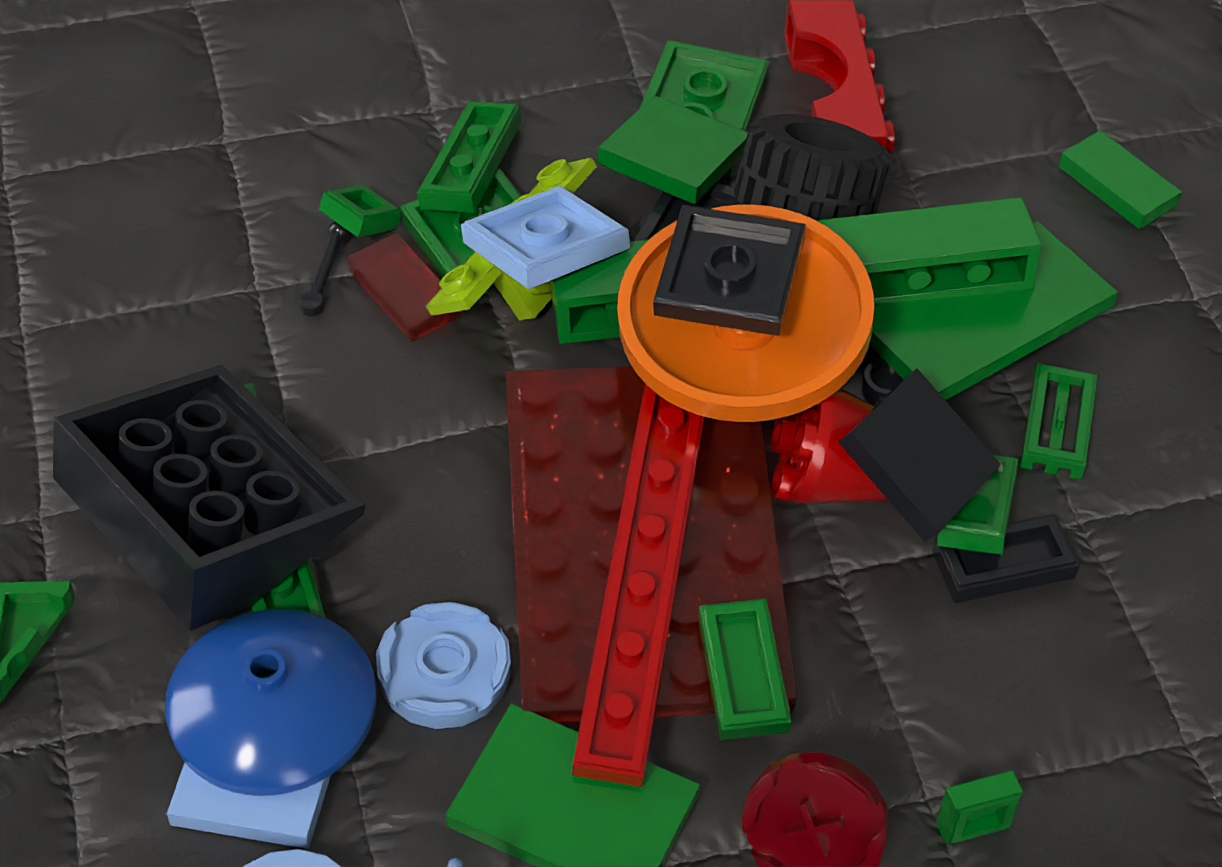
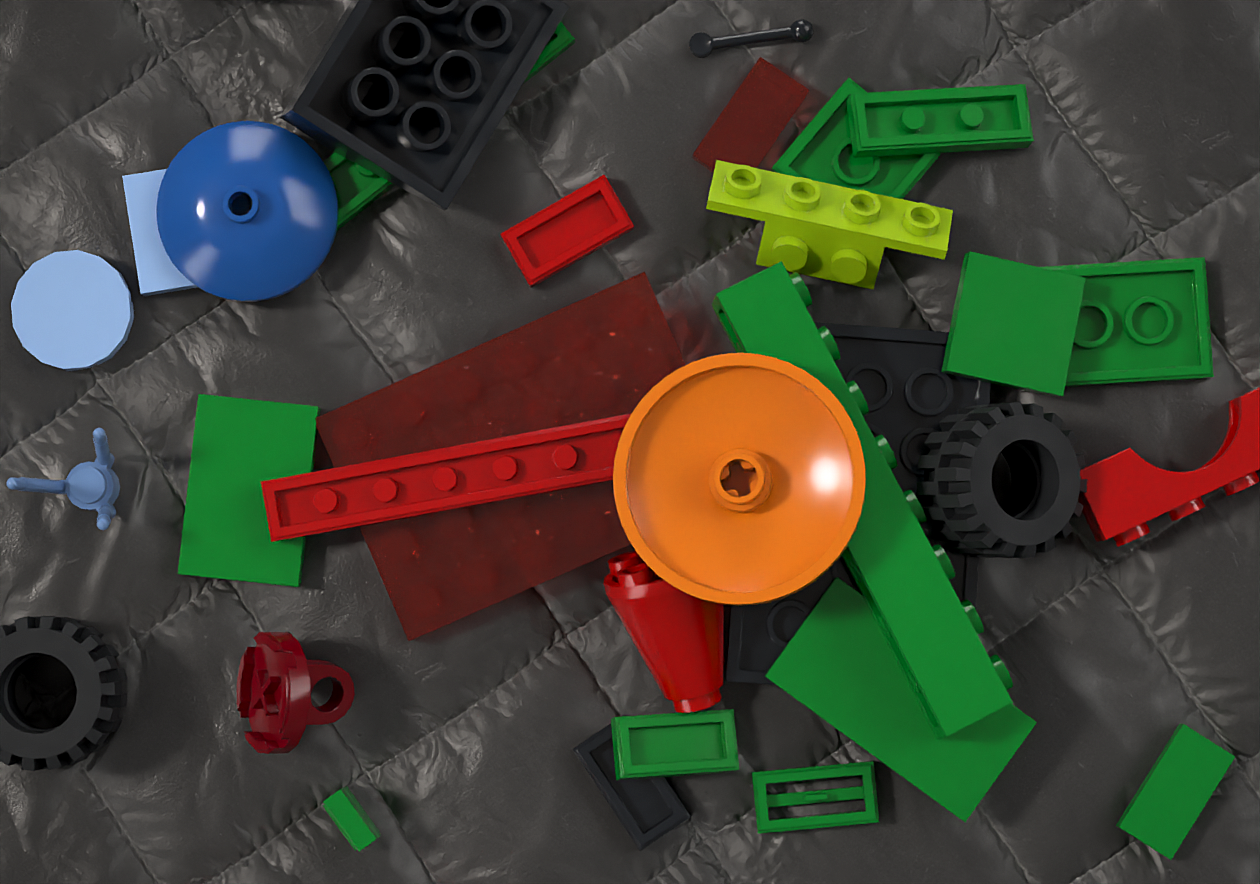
camera: 75 degrees right, 35 degrees up
(360, 210) = (826, 41): green tile -> none
(432, 449) = (567, 231): none -> red tile
(443, 665) = (344, 334): light blue tile -> none
(545, 236) = (793, 252): light blue tile -> none
(730, 270) = (764, 452): black tile -> none
(744, 669) = (404, 590): green tile -> none
(920, 454) = (667, 682): black tile -> none

